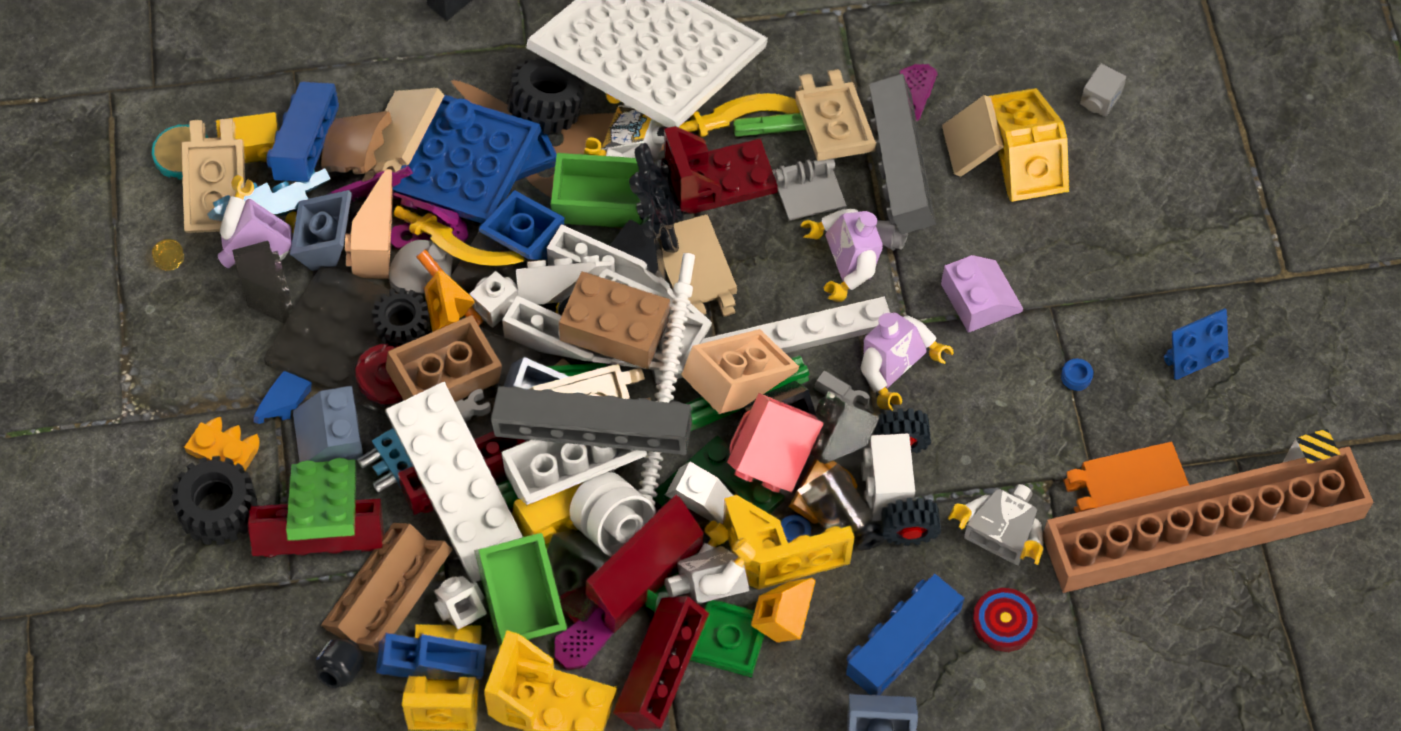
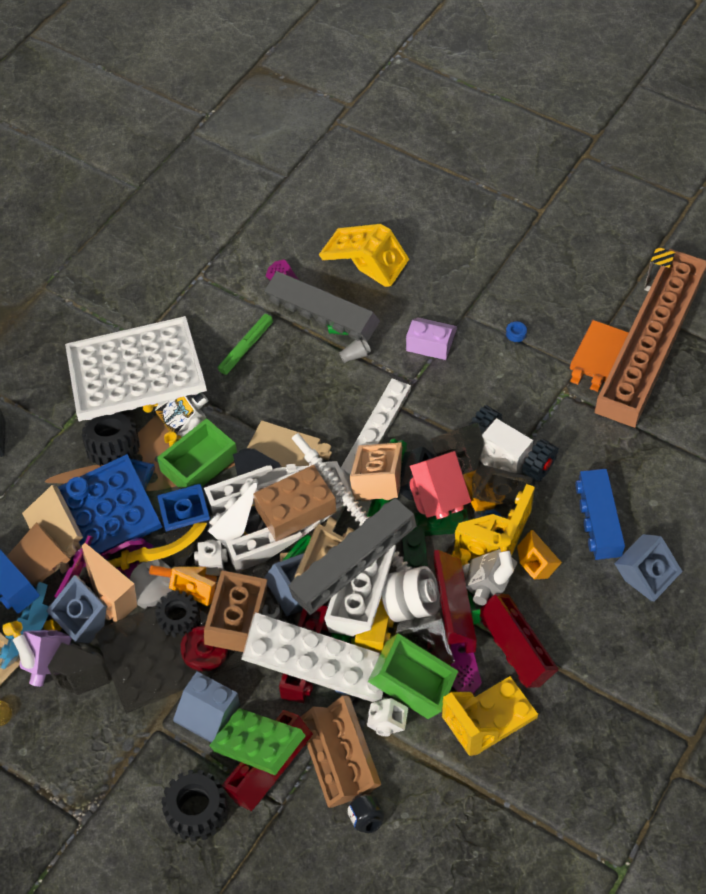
camera: 45 degrees left, 5 degrees down
(210, 441) = (153, 781): light orange plate -> none
(283, 397) = (160, 717): blue slope -> none
(393, 457) = (259, 675): dark azure piece -> none
(430, 657) = (410, 758): blue slope -> none
(443, 703) = (427, 764): yellow bracket -> none
(656, 202) = (240, 435): black plate -> none
(700, 491) = (426, 541): white slope -> none
(716, 176) = (242, 399): dark red bracket -> none
(729, 639) = (530, 596): green tile -> none
(738, 107) = (213, 354): yellow sword -> none
(809, 188) = (292, 364): light grey hinge -> none
(828, 382) = (424, 439): light grey bar -> none
(834, 118) = (266, 320): tan tile -> none
(853, 245) = (351, 367): torso -> none
(892, 350) = (430, 397): torso -> none
(972, 136) = (341, 271): tan tile -> none
(1003, 524) = (578, 422): light grey torso -> none
(1005, 619) = (628, 463): dark red tile -> none
(1103, 90) = (368, 203): light grey brick -> none
(1198, 344) = (552, 269): blue hinge -> none

